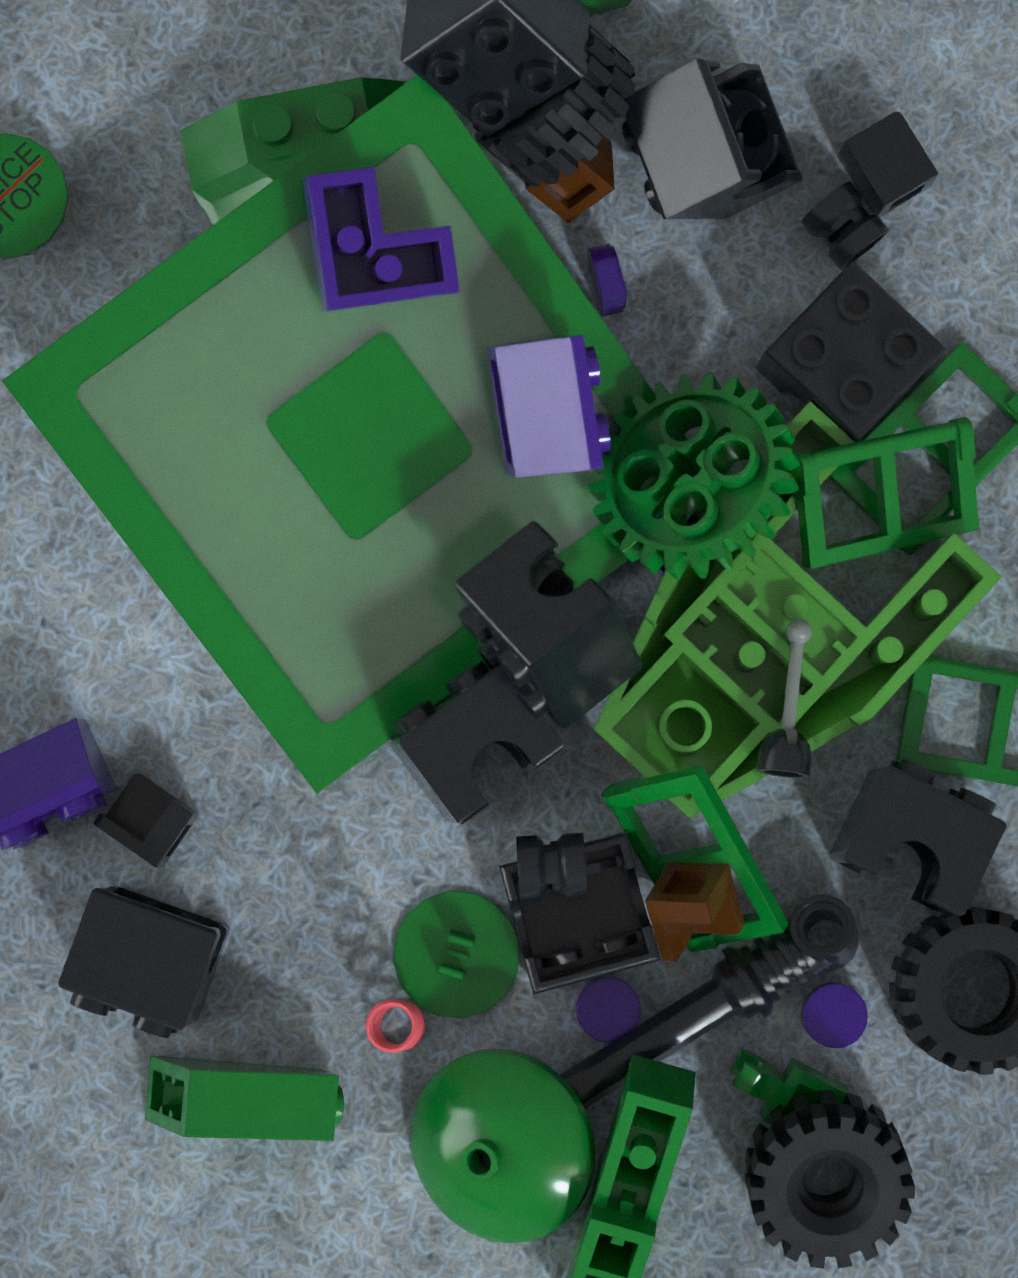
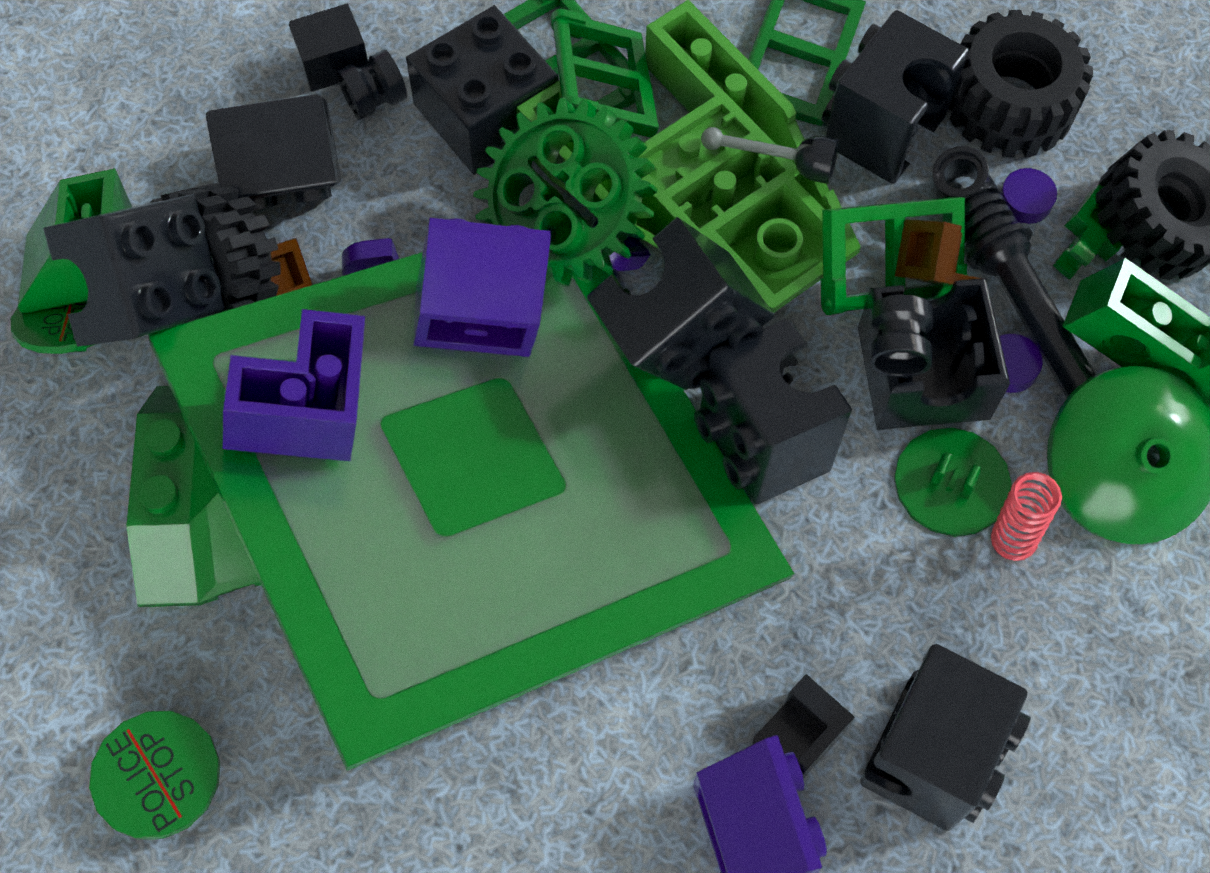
camera: 80 degrees left, 20 degrees down
(242, 1100) = (1083, 683): green slope -> none

